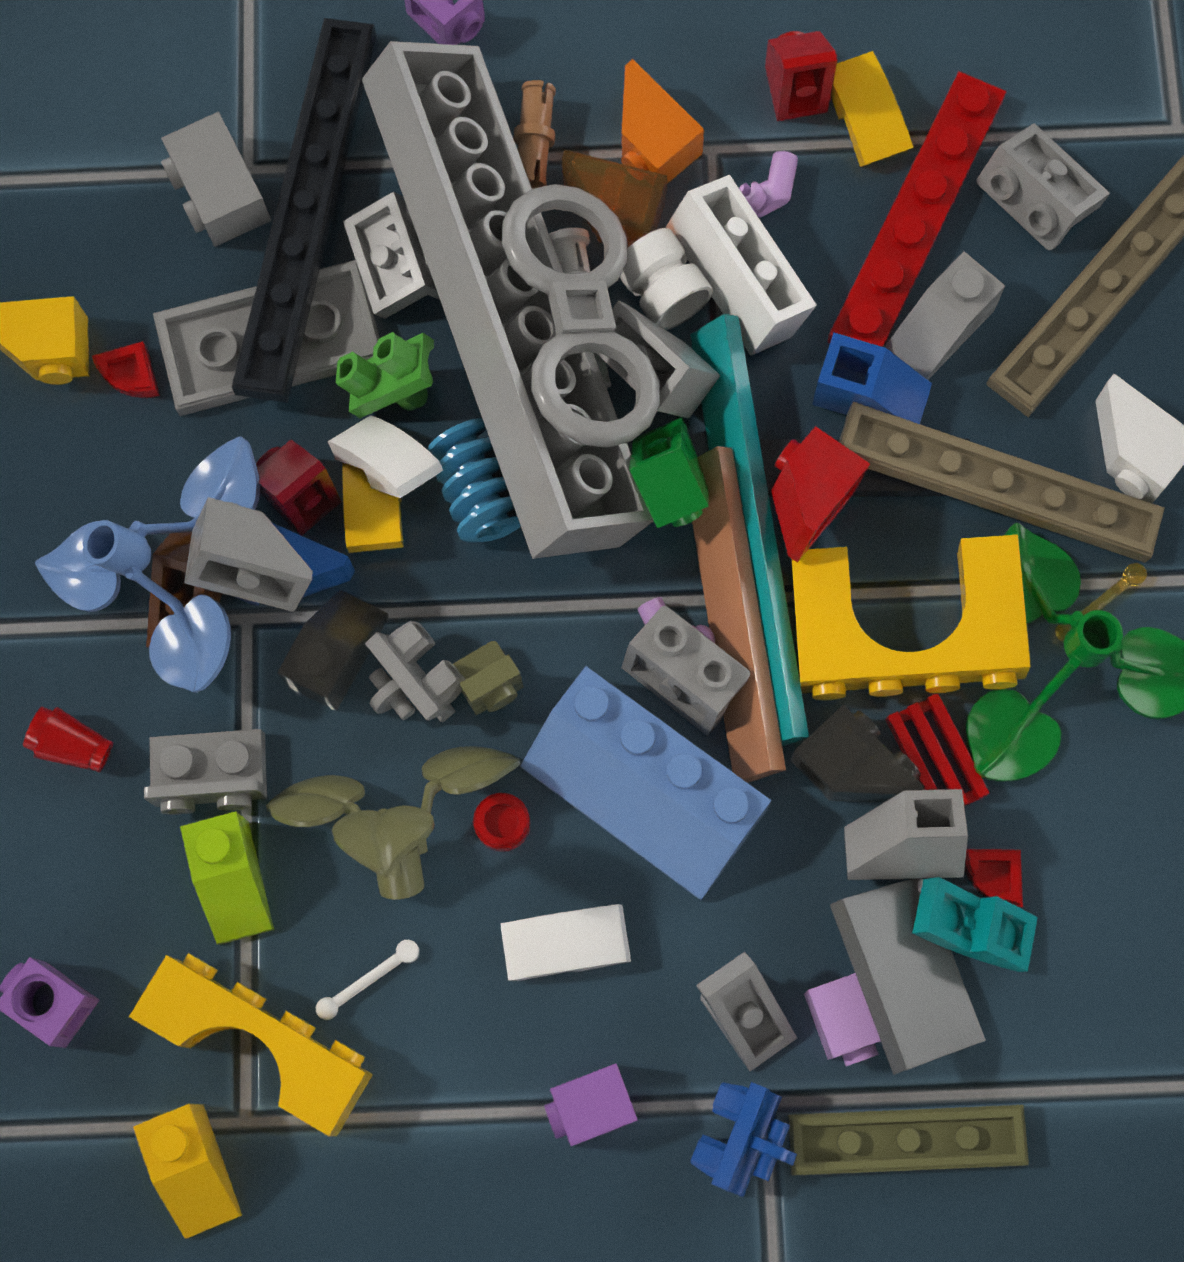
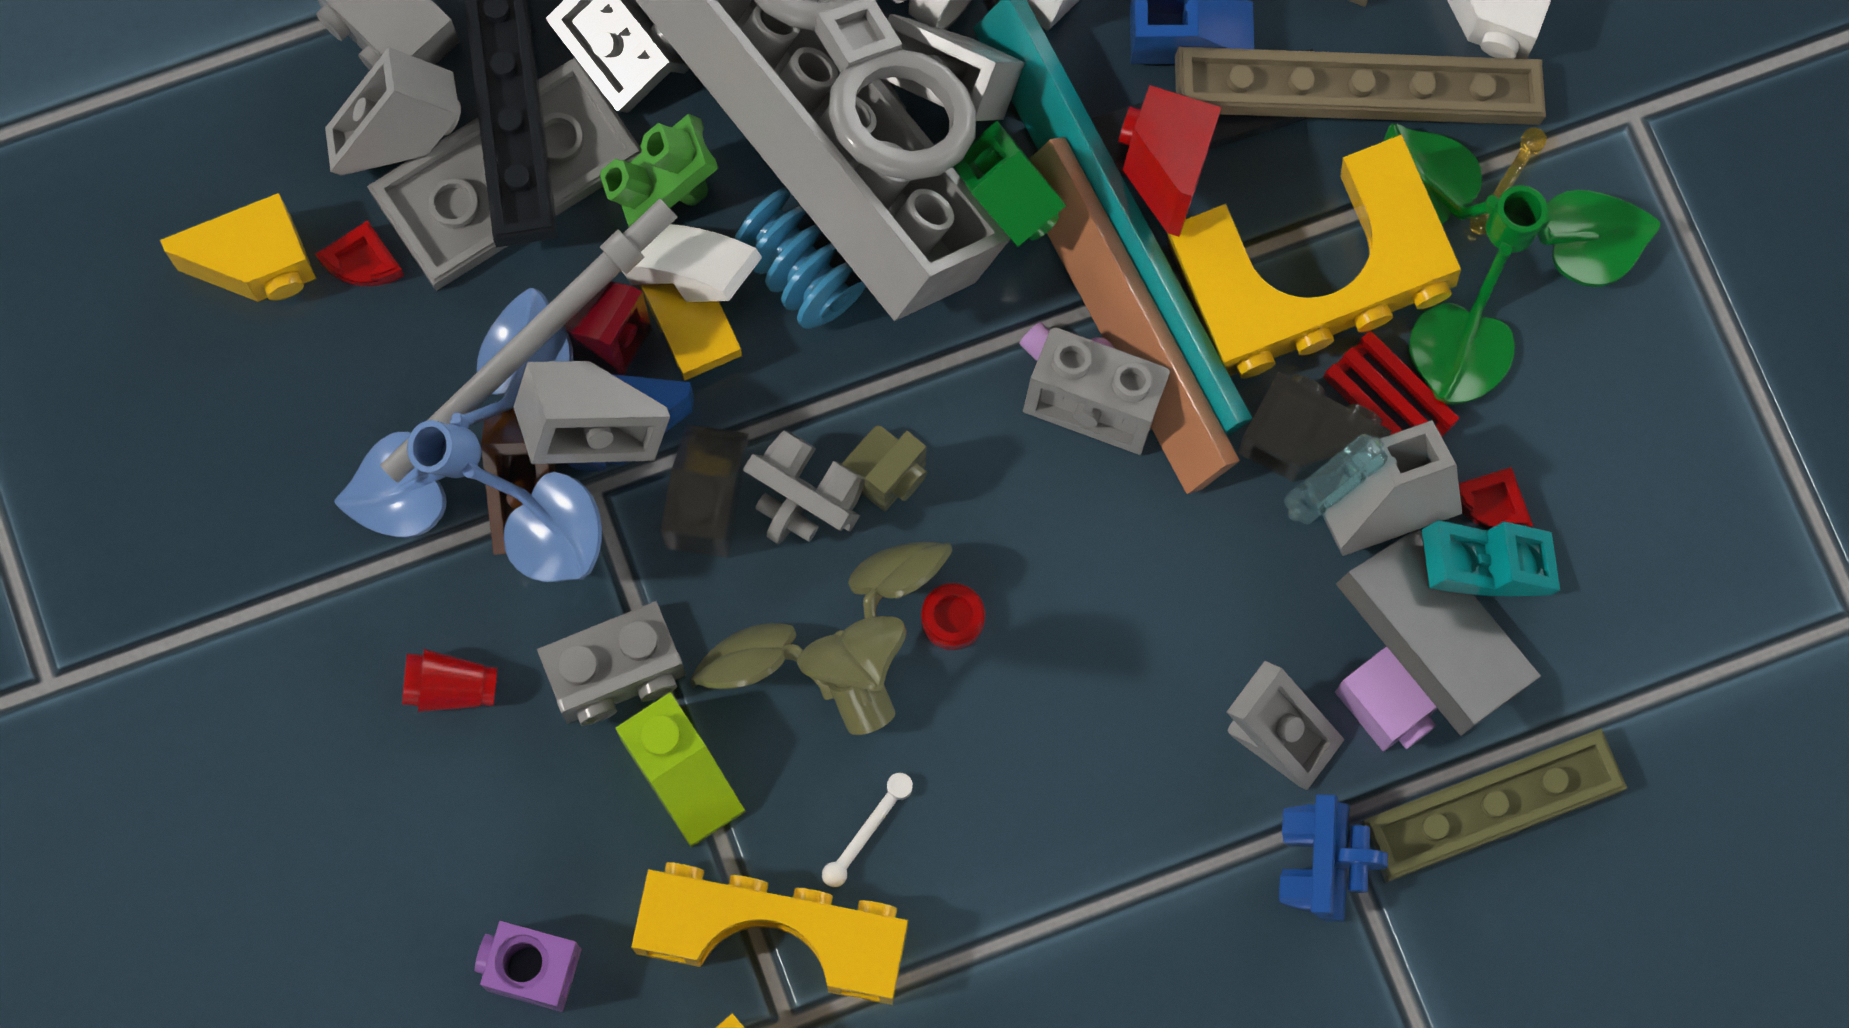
camera: 25 degrees left, 0 degrees up
(191, 261) = (393, 114): none -> light grey slope
(319, 431) = (620, 253): none -> light grey bar
(565, 942) = (1067, 719): white slope -> none
(590, 1106) = (1155, 878): medium lavender brick -> none
(644, 783) = (1093, 524): medium blue slope -> none
(862, 812) = (1335, 479): none -> clear light blue axle

